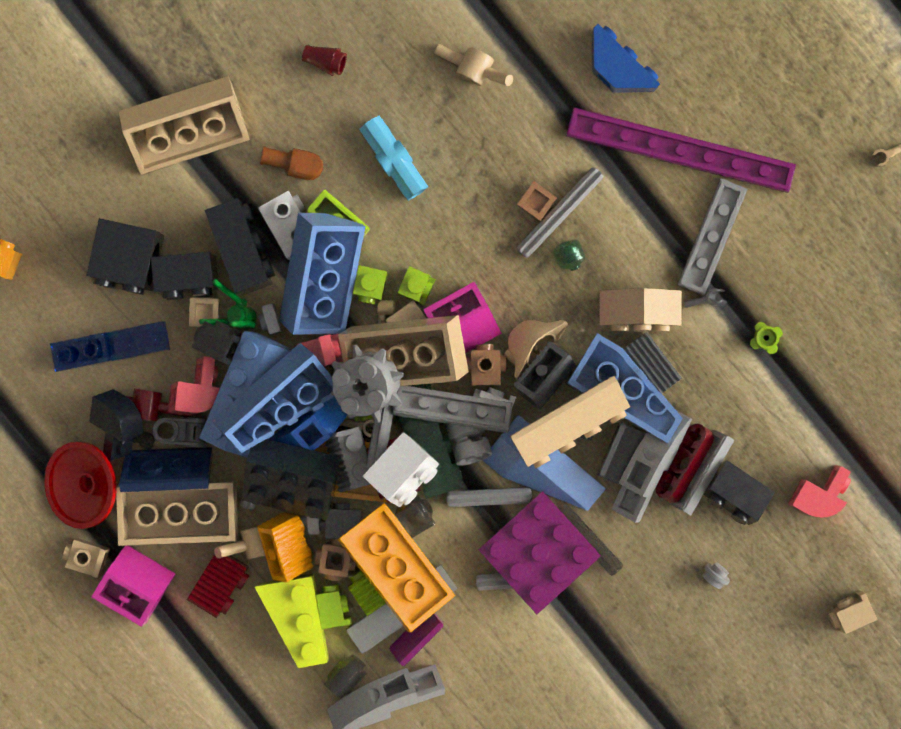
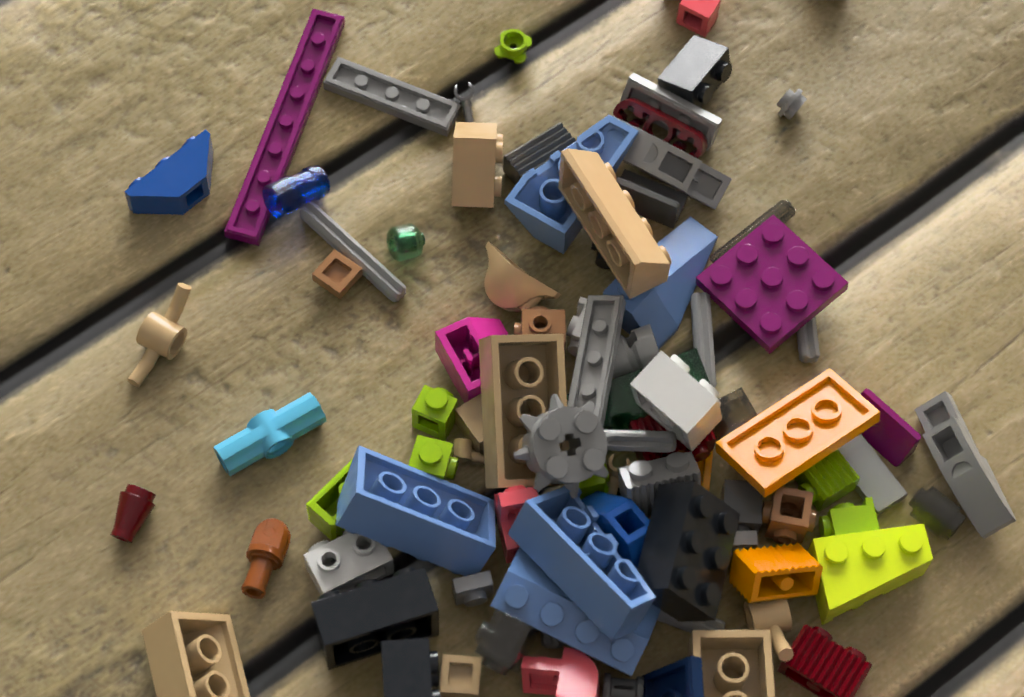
camera: 90 degrees left, 25 degrees down
(239, 314) = (463, 630): green plant -> none
(545, 375) = (553, 266): dark grey brick -> none
(608, 161) = (295, 191): none -> clear blue piece

